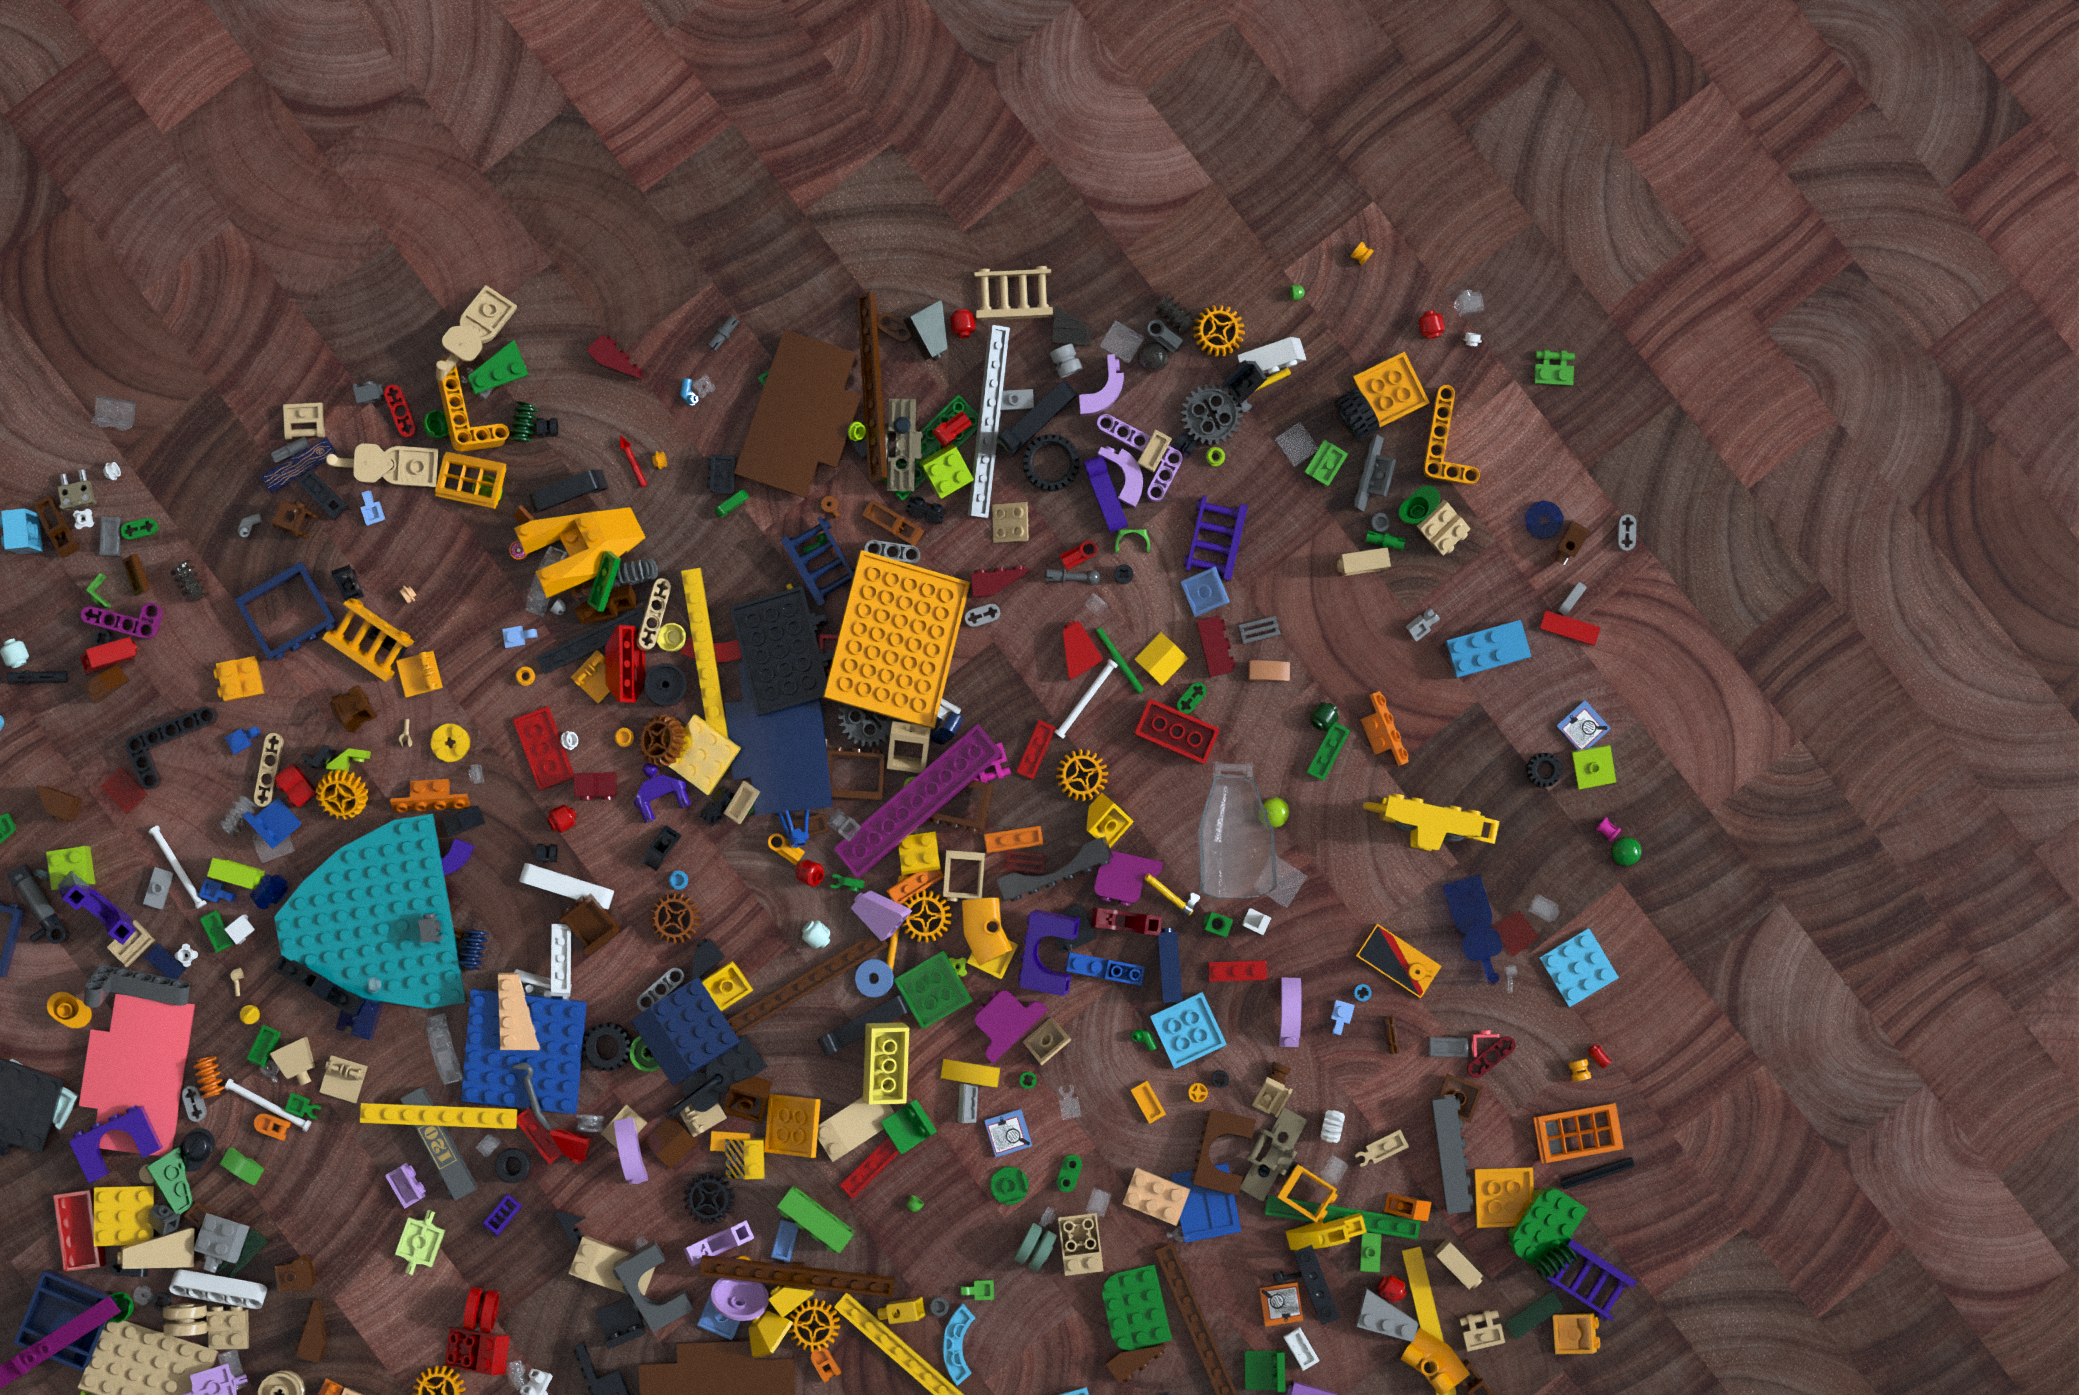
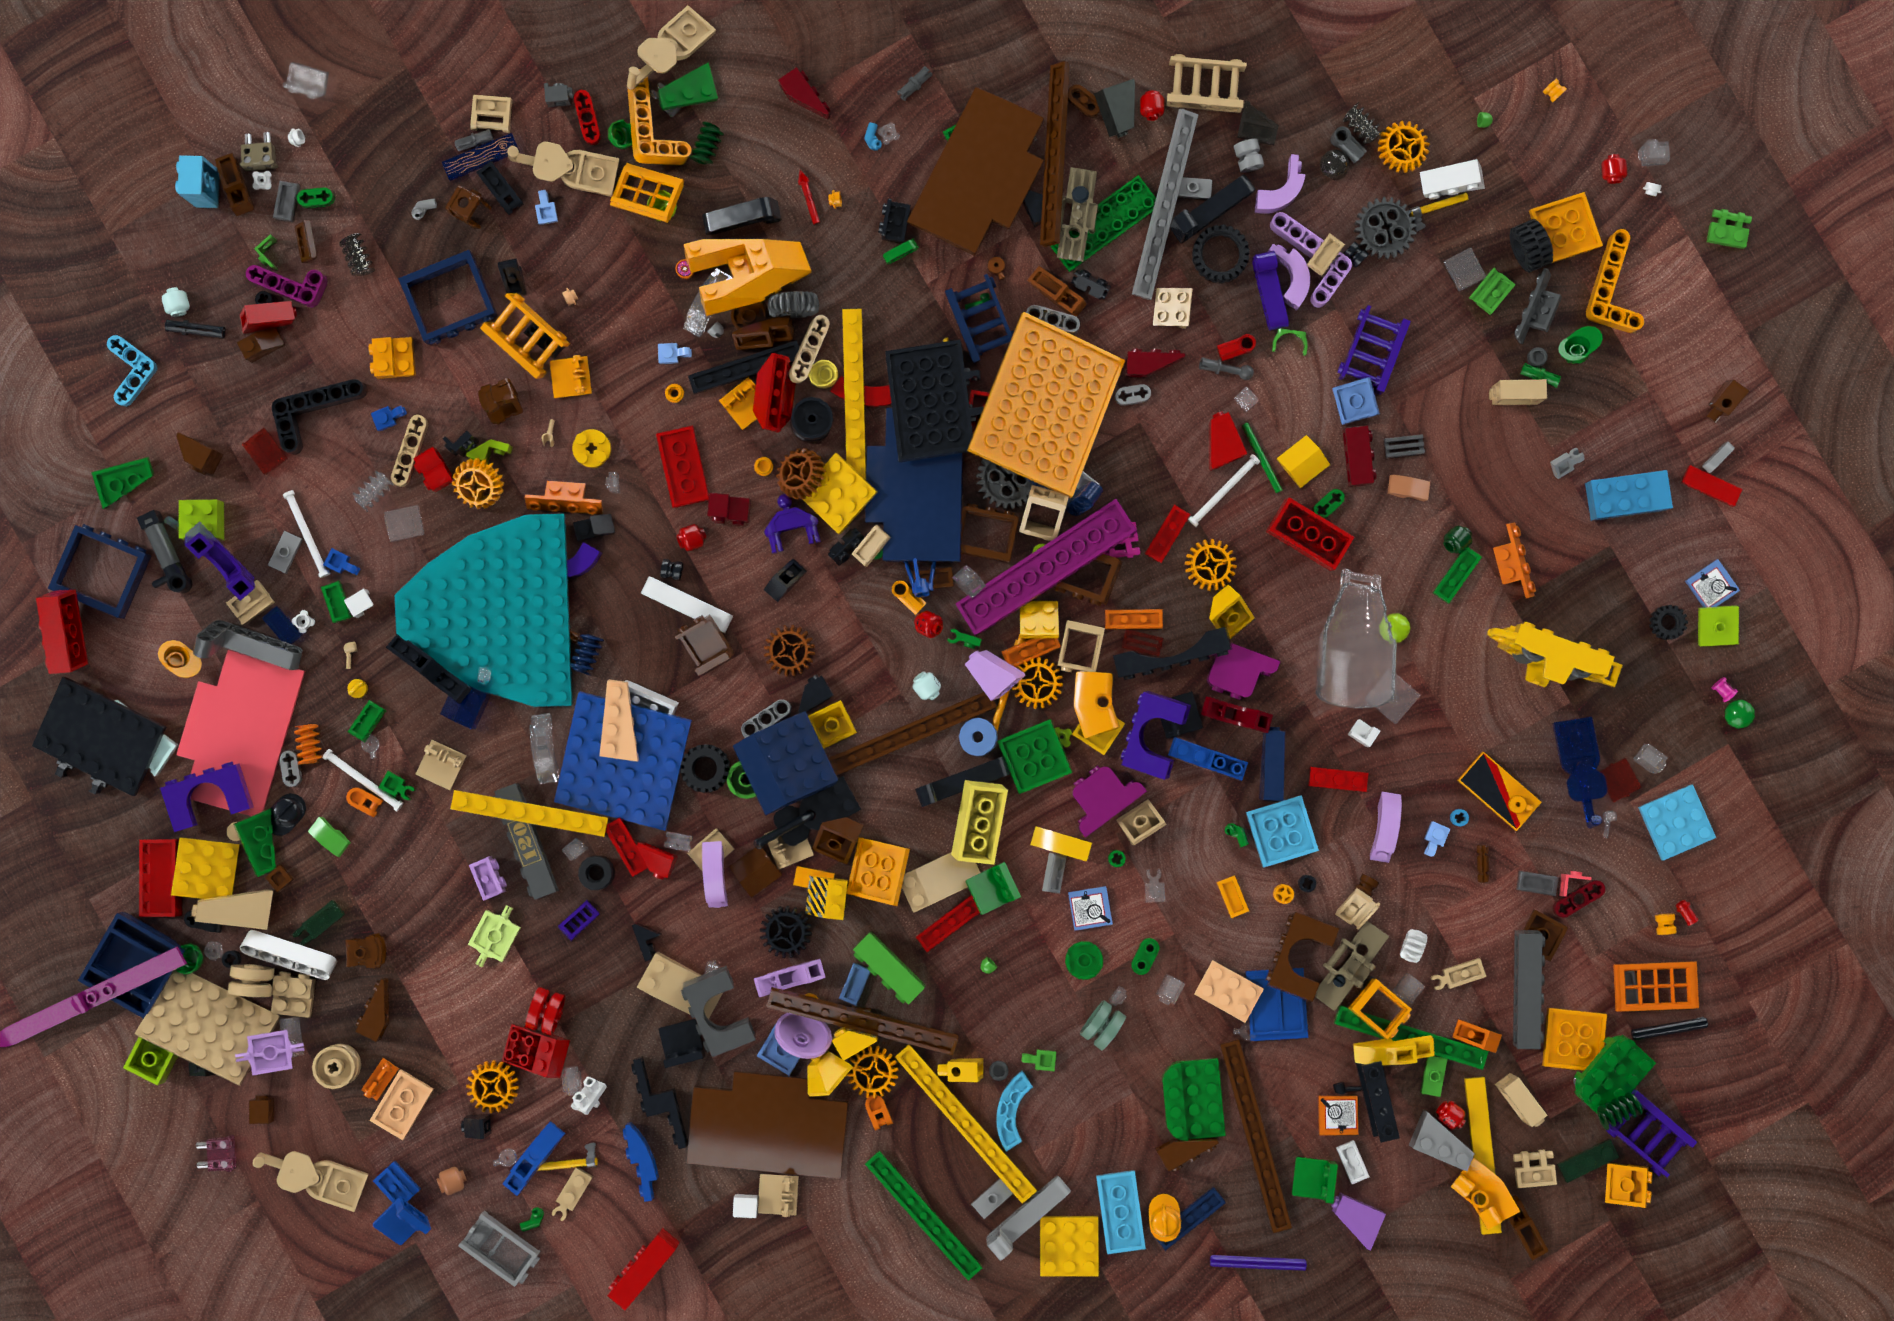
camera: 10 degrees right, 0 degrees up
(163, 1219) = (241, 875): dark grey brick -> none
(220, 1241) = (296, 907): light grey hinge -> none
(235, 873) = (363, 547): lime window -> none
(269, 890) = (393, 568): clear blue plate -> none
(273, 822) = (407, 502): blue bracket -> none
(295, 1060) = (396, 739): tan torso -> none
(430, 928) = (546, 626): dark grey brick -> none
(522, 515) = (693, 234): dark orange slope -> none
(531, 1094) = (624, 805): dark grey piece -> none
(543, 428) = (725, 150): black wheel -> none
(560, 960) = (671, 676): white plate -> none
(569, 740) = (709, 462): white plate -> none
(604, 581) = (765, 307): green plate -> none
(678, 880) = (798, 614): dark azure plate -> none
(856, 431) = (1034, 194): lime plate -> none
(946, 471) = (1116, 247): lime brick -> none
(948, 431) = (1124, 208): red piece -> none
(1080, 1244) = (1148, 1028): tan slope -> none
(1121, 574) = (1275, 375): black wheel -> none
(1122, 341) = (1306, 145): clear piece -> none
(1185, 907) = (1295, 710): yellow piece -> none
(1215, 450) = (1383, 264): lime plate -> none
(1226, 924) = (1334, 730): green brick -> none
(1244, 380) = (1424, 197): black bracket -> none
(1443, 528) = (1601, 370): tan plate -> none
(1554, 516) = (1710, 374): clear blue plate -> none
(1622, 532) = (1784, 400): light grey beam -> none

